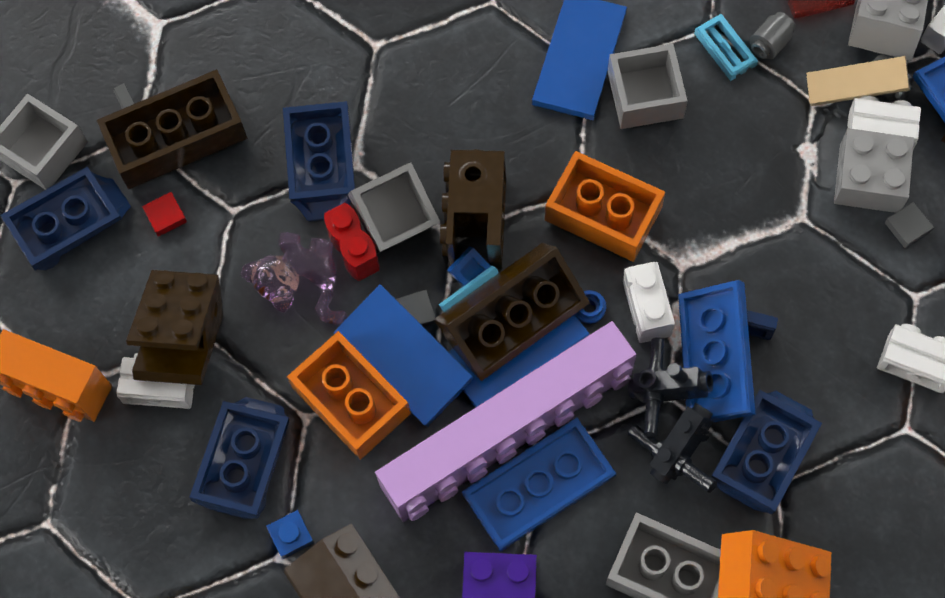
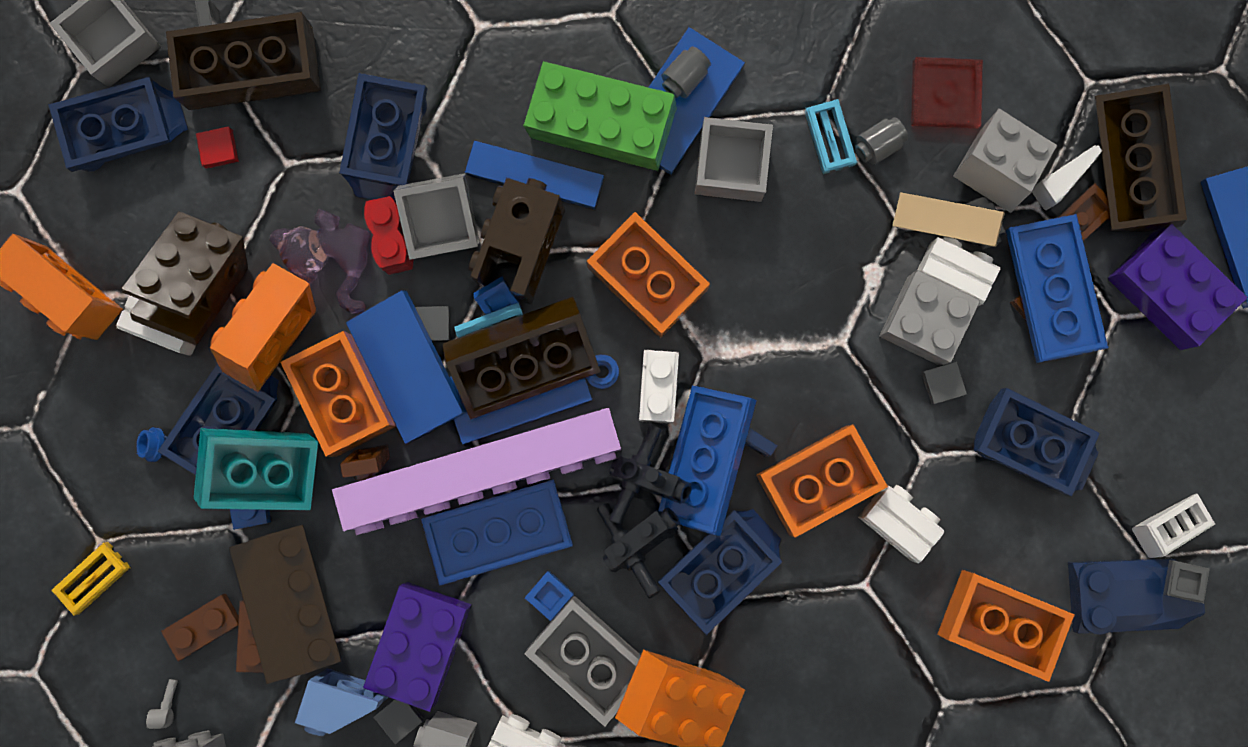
camera: 15 degrees right, 15 degrees up
(176, 499) = (149, 443): none -> blue plate
(261, 350) = (263, 327): none -> orange brick
(292, 481) = (255, 470): none -> teal brick
(395, 446) = (365, 462): none -> reddish brown plate
(430, 154) = (571, 183): none -> blue tile
(514, 84) = (600, 115): none -> bright green brick
(578, 26) = (685, 72): none -> dark grey brick
(610, 526) = (549, 595): none -> blue plate
(830, 339) = (821, 480): none -> orange brick

